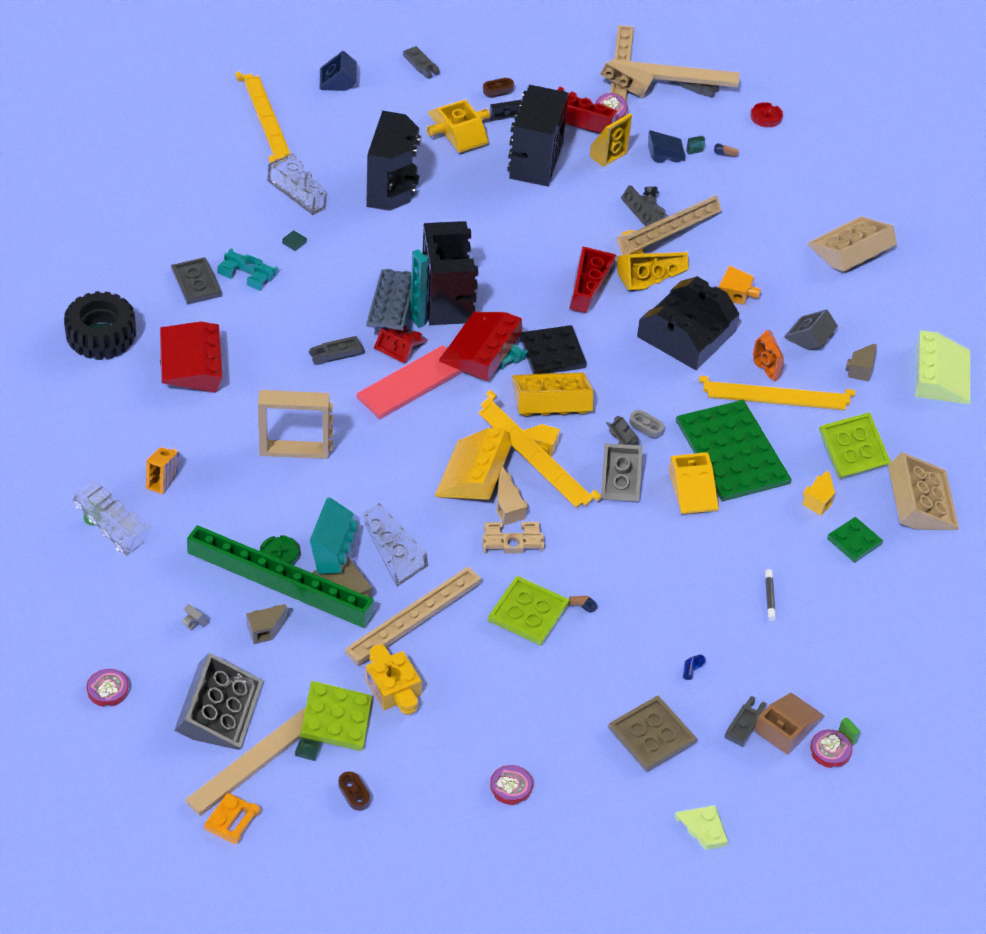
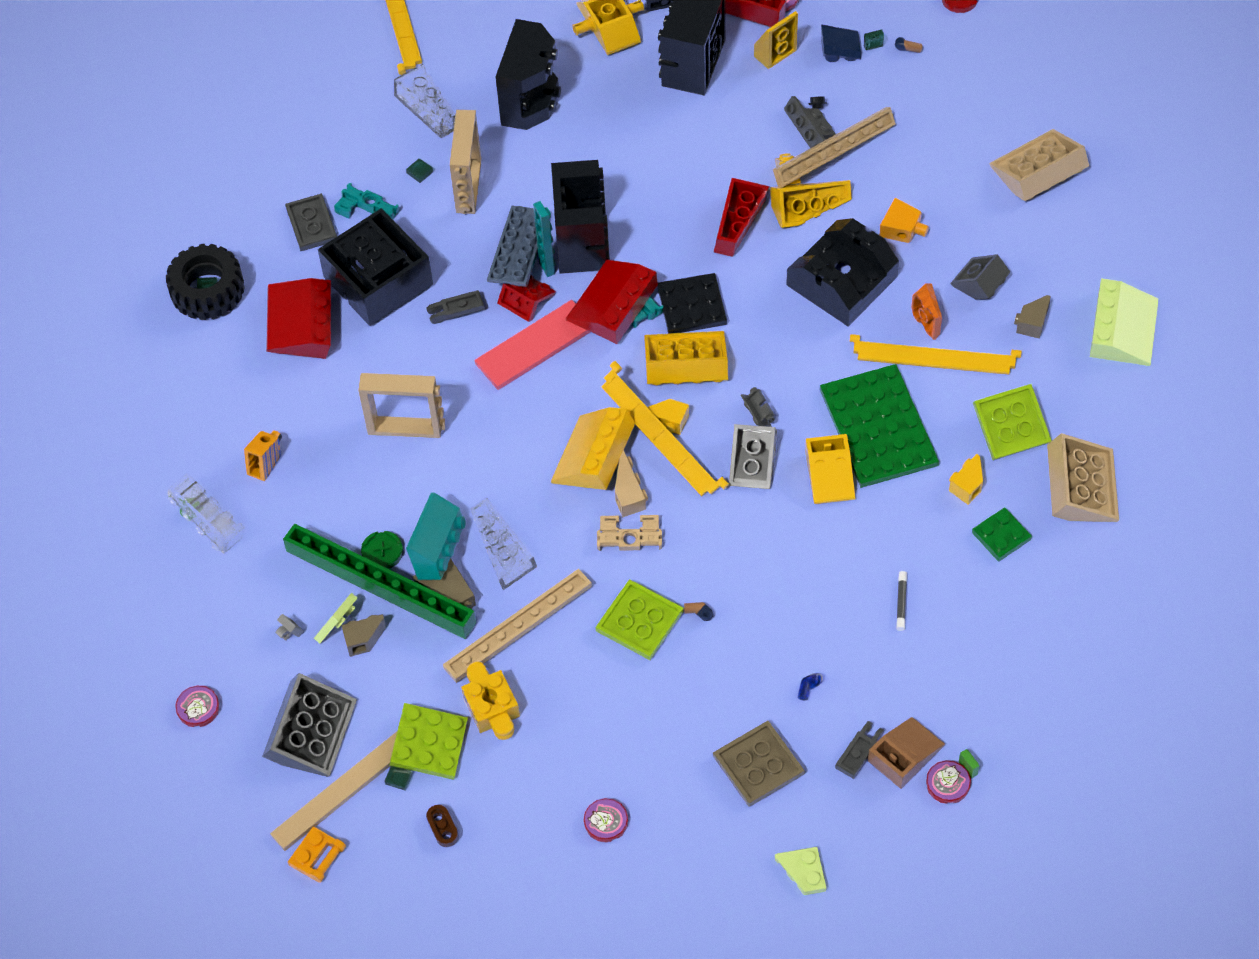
camera: 10 degrees right, 10 degrees up
(241, 608) = (337, 618): none -> yellowish green wing
(278, 315) = (392, 265): none -> black piece
(340, 228) = (465, 161): none -> tan window
(646, 423) = (787, 395): light grey plate -> none

